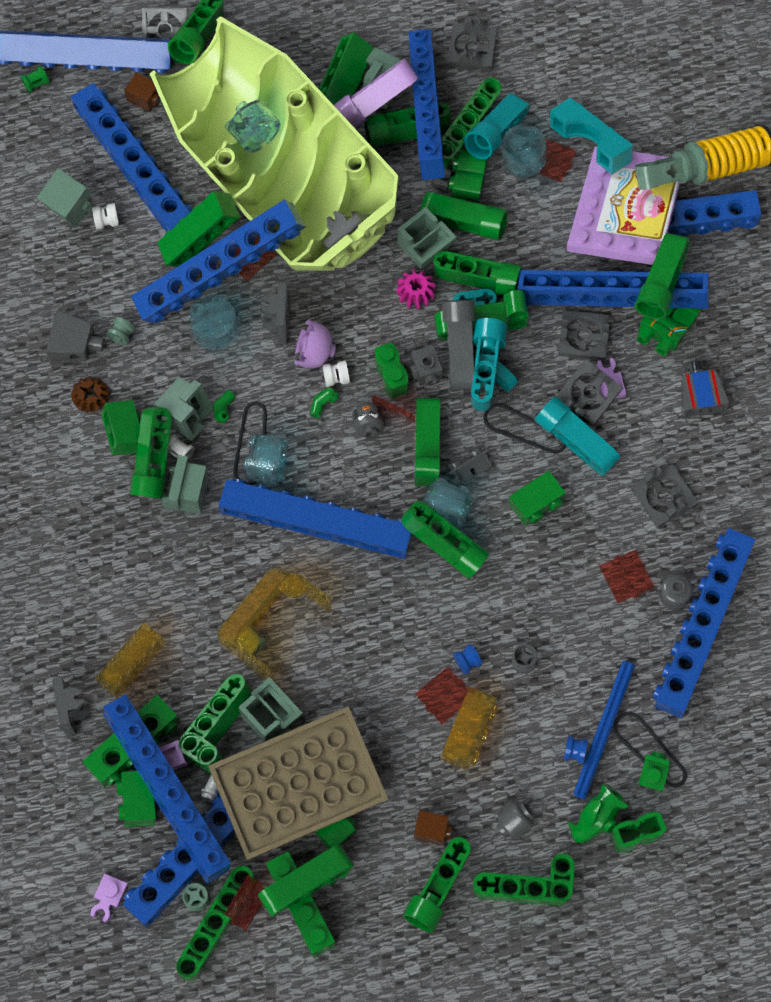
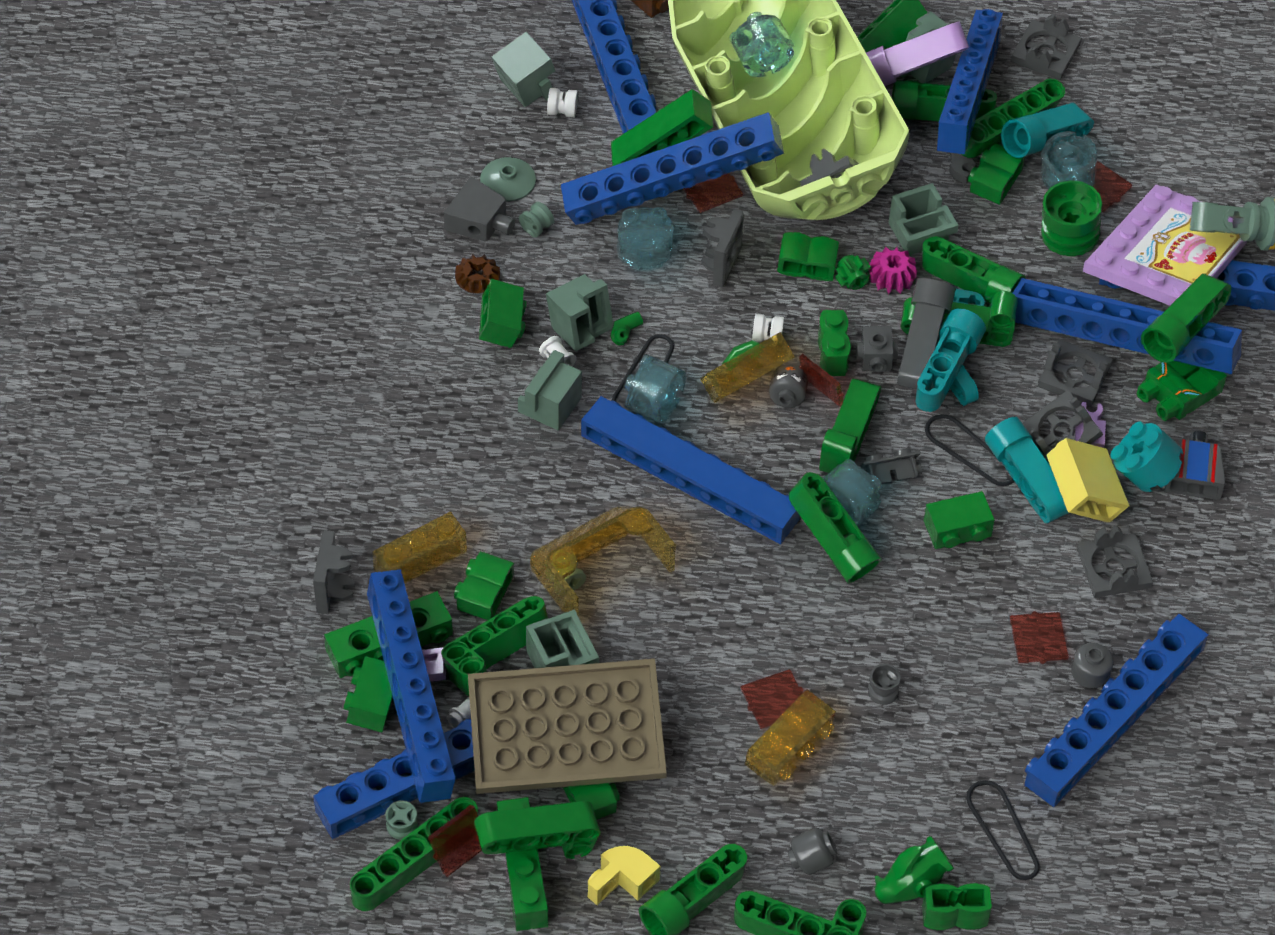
camera: 15 degrees right, 15 degrees down
(86, 307) = (509, 178): none -> sand green dish
(109, 894) = (299, 789): lavender plate -> none
(146, 480) = (509, 373): green beam -> none
(190, 674) = (484, 585): none -> green brick
(314, 345) = (754, 293): lavender cylinder -> none
(332, 416) = (747, 367): none -> clear yellow brick
(346, 297) = (808, 256): none -> green brick
(379, 880) = (623, 867): none -> light yellow brick
(386, 301) = (853, 272): none -> green gear
(432, 828) = (708, 829): reddish brown brick -> none
(467, 216) = (982, 213): green beam -> none
(467, 659) = (816, 665): blue wheel -> none
(544, 190) = (1071, 218): none -> green wheel
(573, 120) = (1139, 149): teal arch -> none
(575, 749) = (912, 798): blue wheel -> none
(603, 730) = (955, 788): blue axle -> none
(624, 433) = (1087, 480): none -> light yellow brick
(655, 771) = (1000, 850): green bracket -> none
(664, 398) = (1147, 456): none -> teal brick

